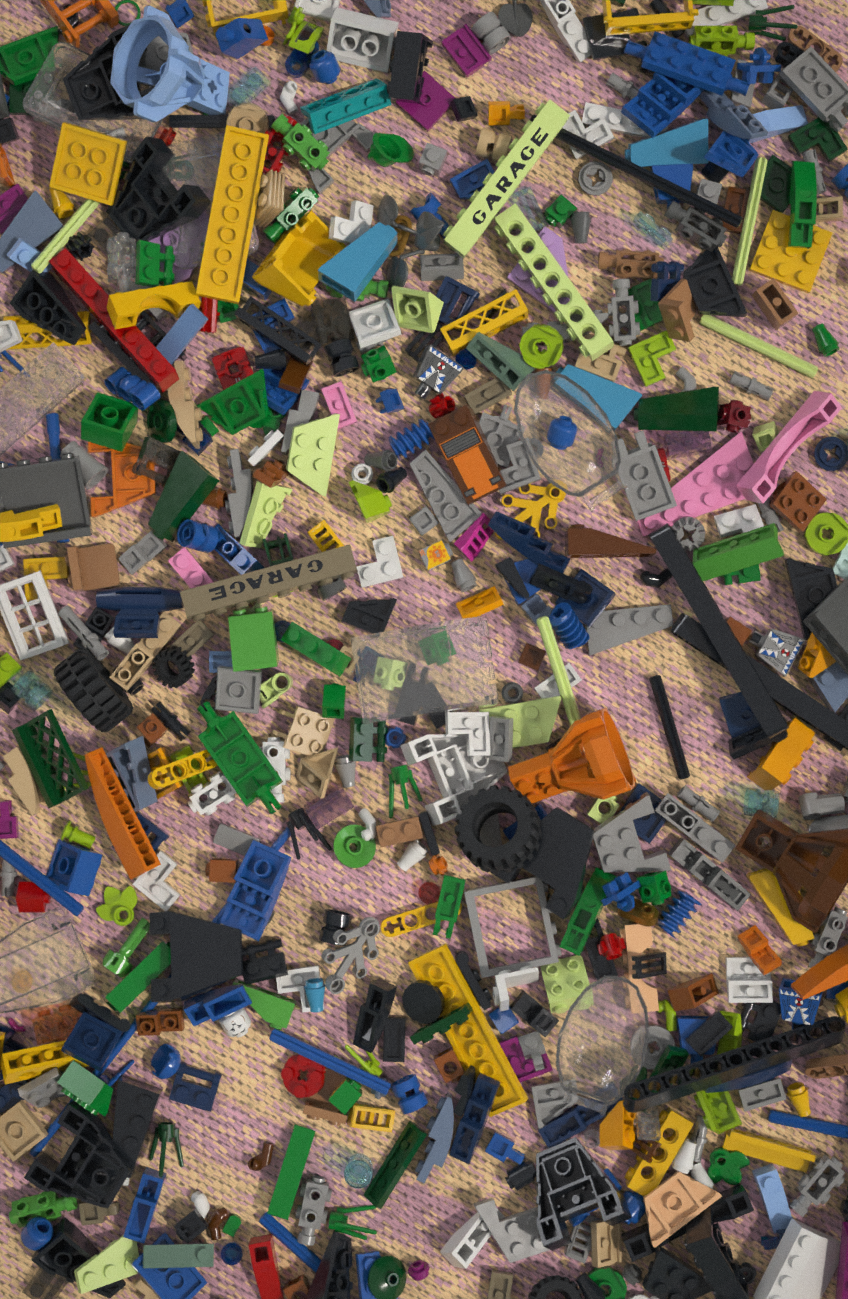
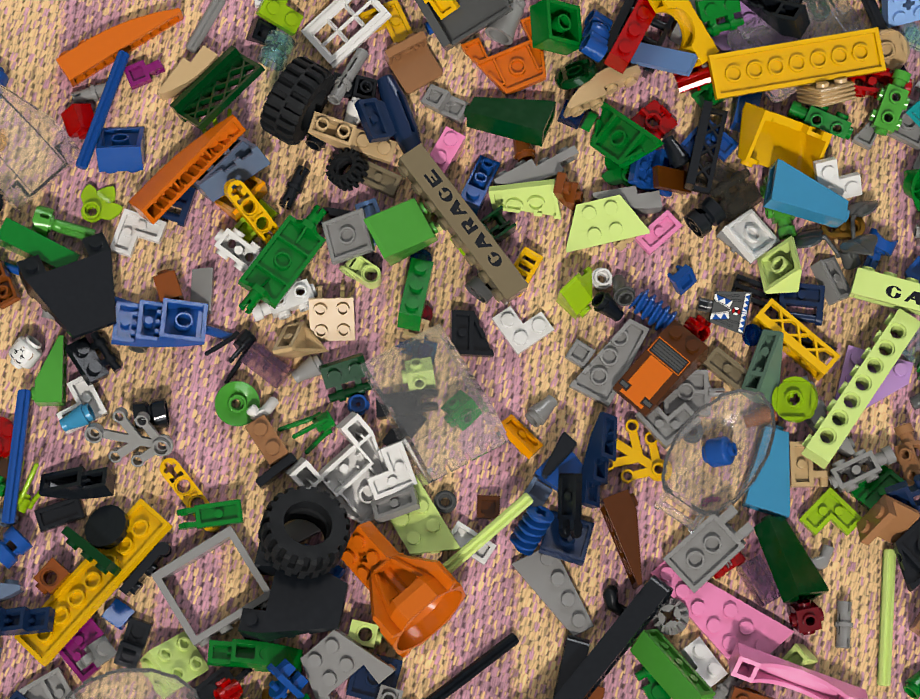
camera: 65 degrees right, 10 degrees down
(76, 835) = (153, 141): lime pin -> none
(151, 730) = (278, 171): dark orange brick -> none
(157, 454) = (543, 80): clear smoke plate -> none
(197, 536) = (480, 145): blue wheel -> none
(216, 1003) = (35, 327): blue slope -> none
(260, 453) = (582, 175): white plate -> none
(334, 701) = (371, 331): green brick -> none
(377, 364) = (712, 253): green brick -> none
(414, 853) = (249, 463): white cone -> none
(429, 892) = (217, 493): clear red plate -> none
(435, 555) = (551, 376): brick -> none
(438, 864) = (248, 492): orange plate -> none
(465, 542) = (580, 399): dark pink slope -> none
(465, 1088) = (34, 599): black slope -> none
(511, 979) = (158, 602): white bracket -> none

